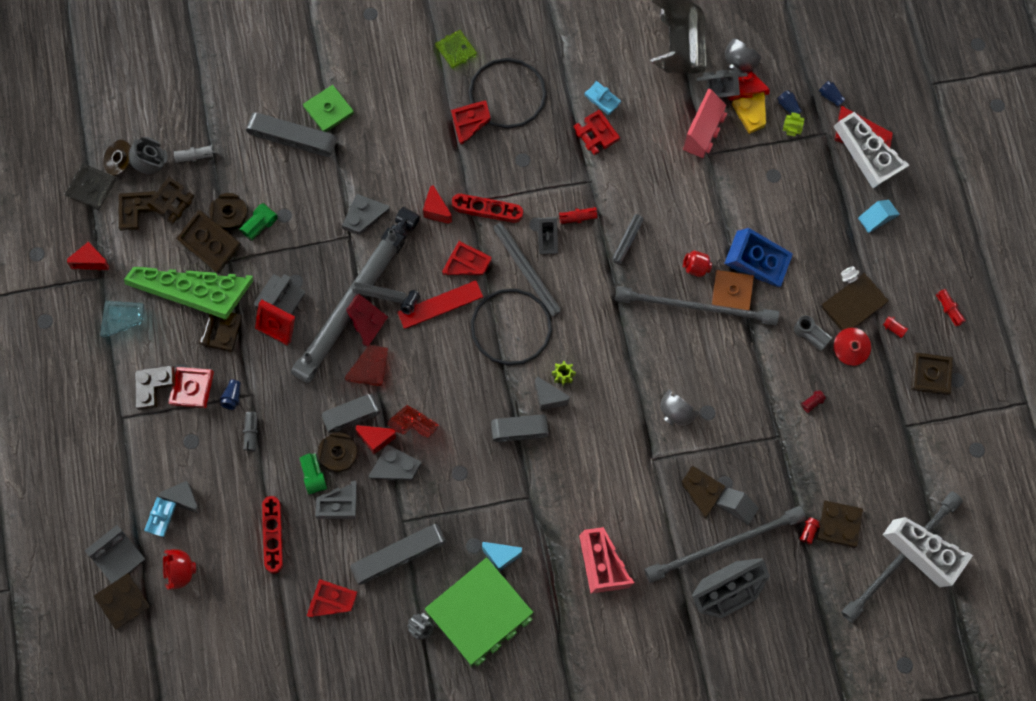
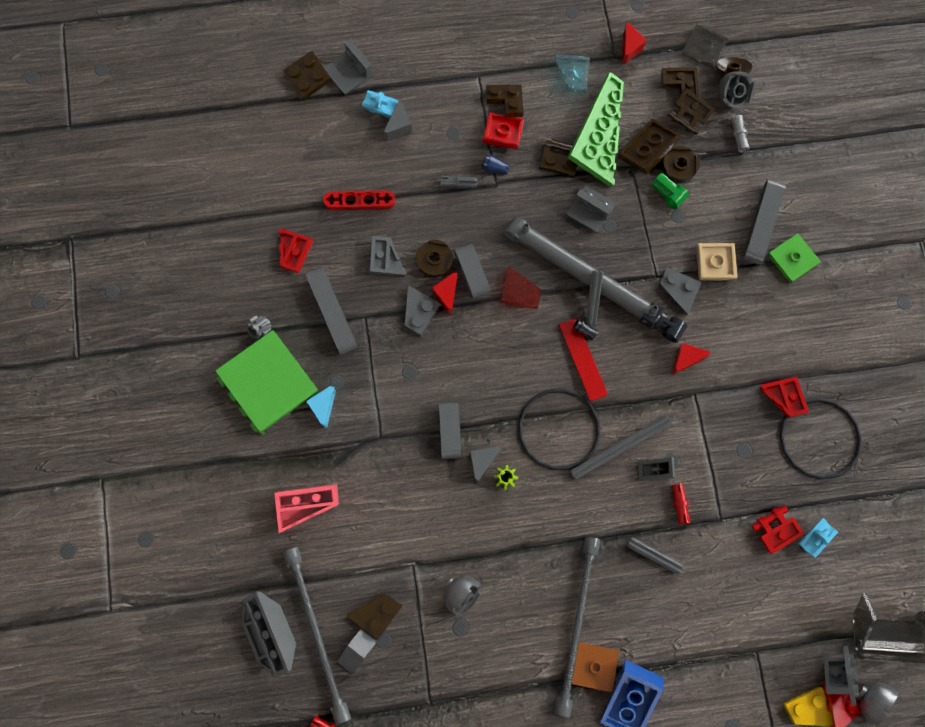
camera: 90 degrees right, 5 degrees up
(177, 568) = (330, 118): red cylinder -> none
(274, 322) = (563, 201): red plate -> none
(313, 478) = (409, 236): green piece -> none
(334, 179) = (716, 261): none -> tan plate
(366, 318) = (568, 286): dark red wing -> none
(411, 418) = (463, 327): clear red plate -> none
(455, 48) = (869, 386): clear neon green piece -> none
(466, 261) = (629, 386): red wing -> none
(488, 205) = (691, 411): red beam -> none
(697, 263) = (625, 629): red head -> none
(705, 125) = (790, 652): coral slope -> none

